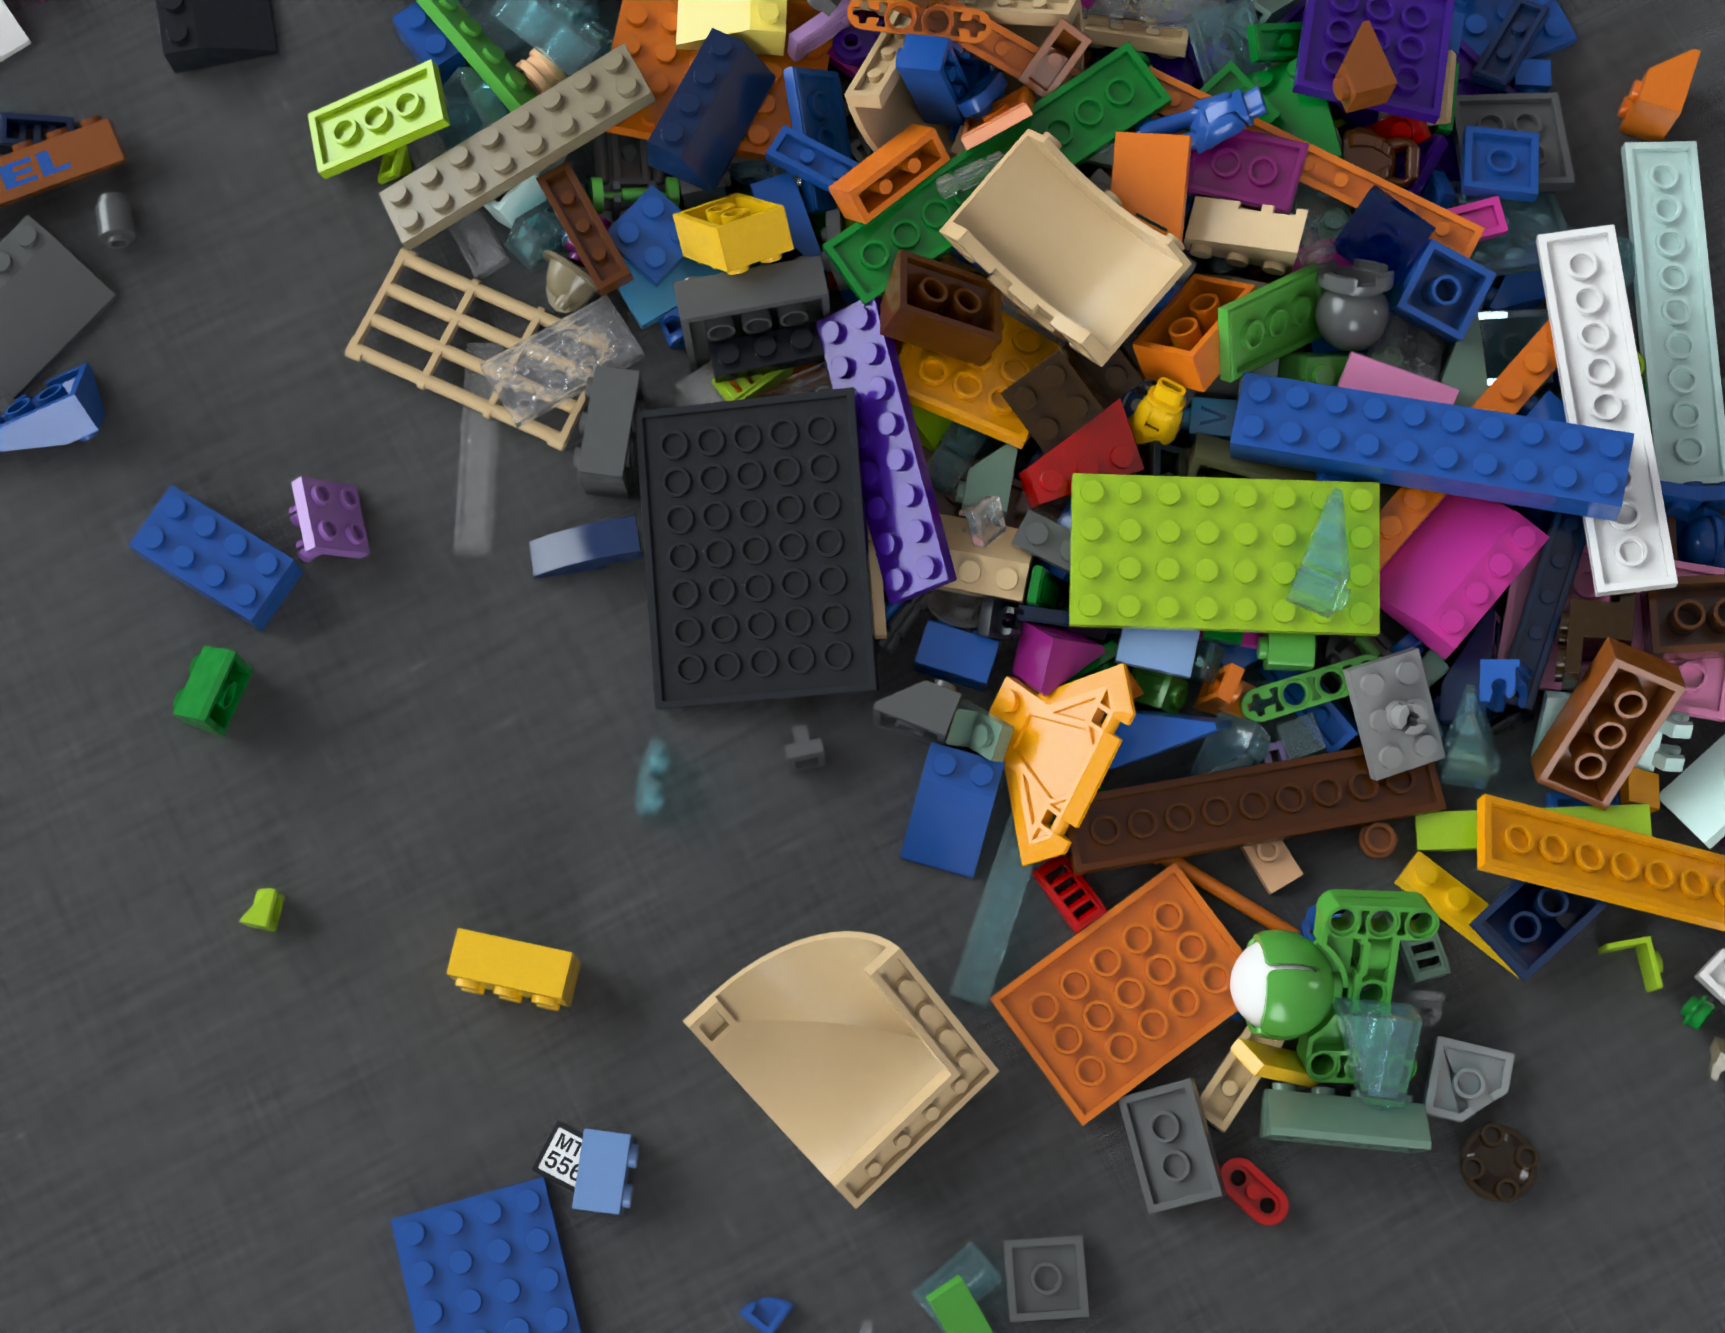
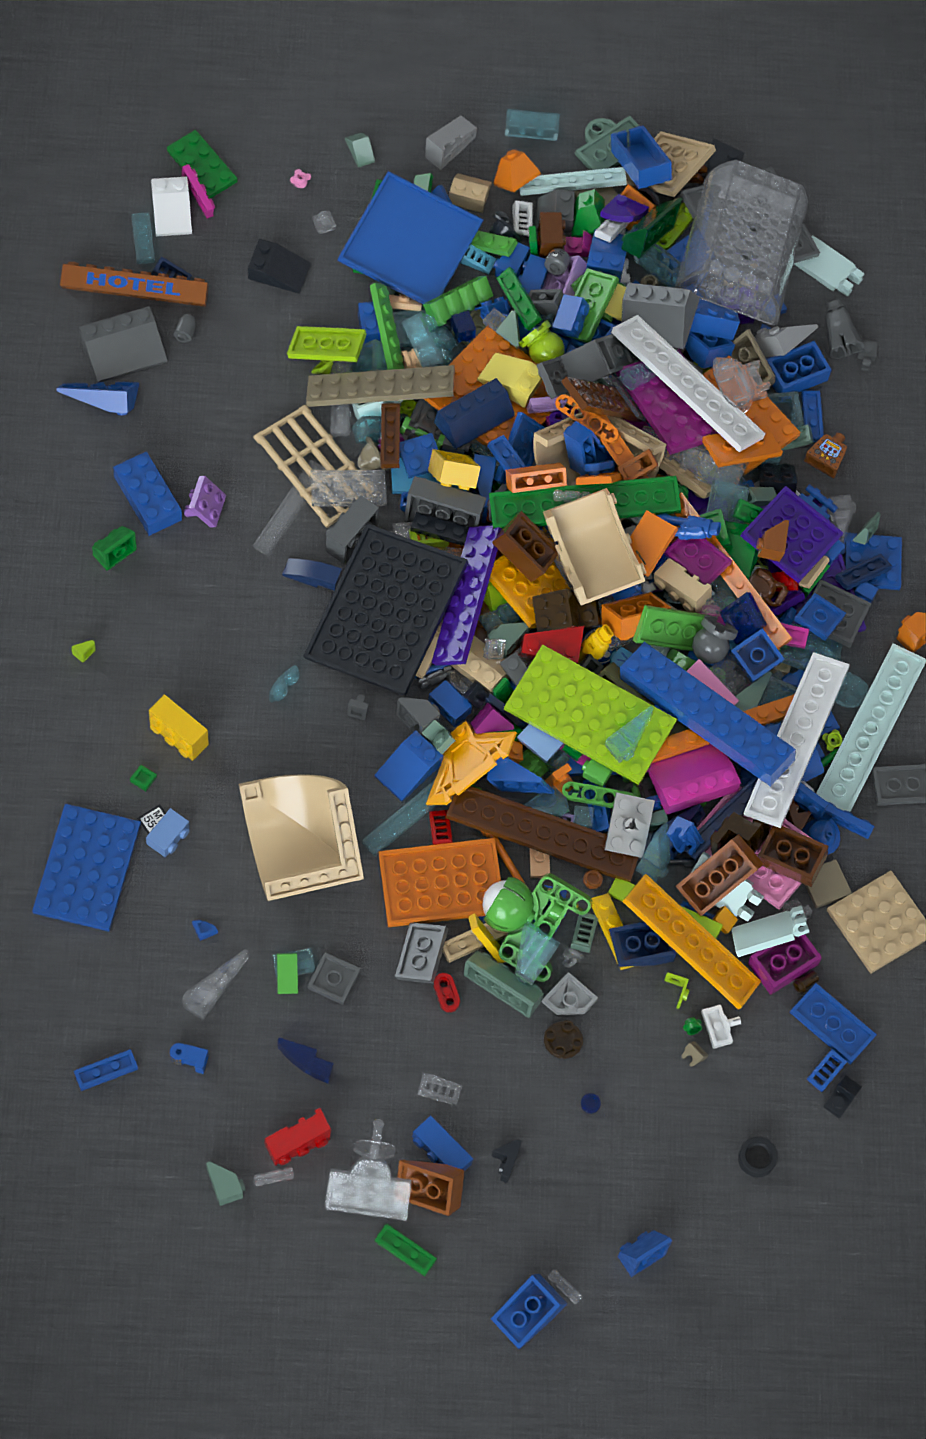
camera: 20 degrees right, 10 degrees down
(501, 1089) = (143, 778): none -> green tile
(585, 166) = (404, 407): none -> lime plate
(1610, 1253) = (590, 1103): none -> clear blue plate

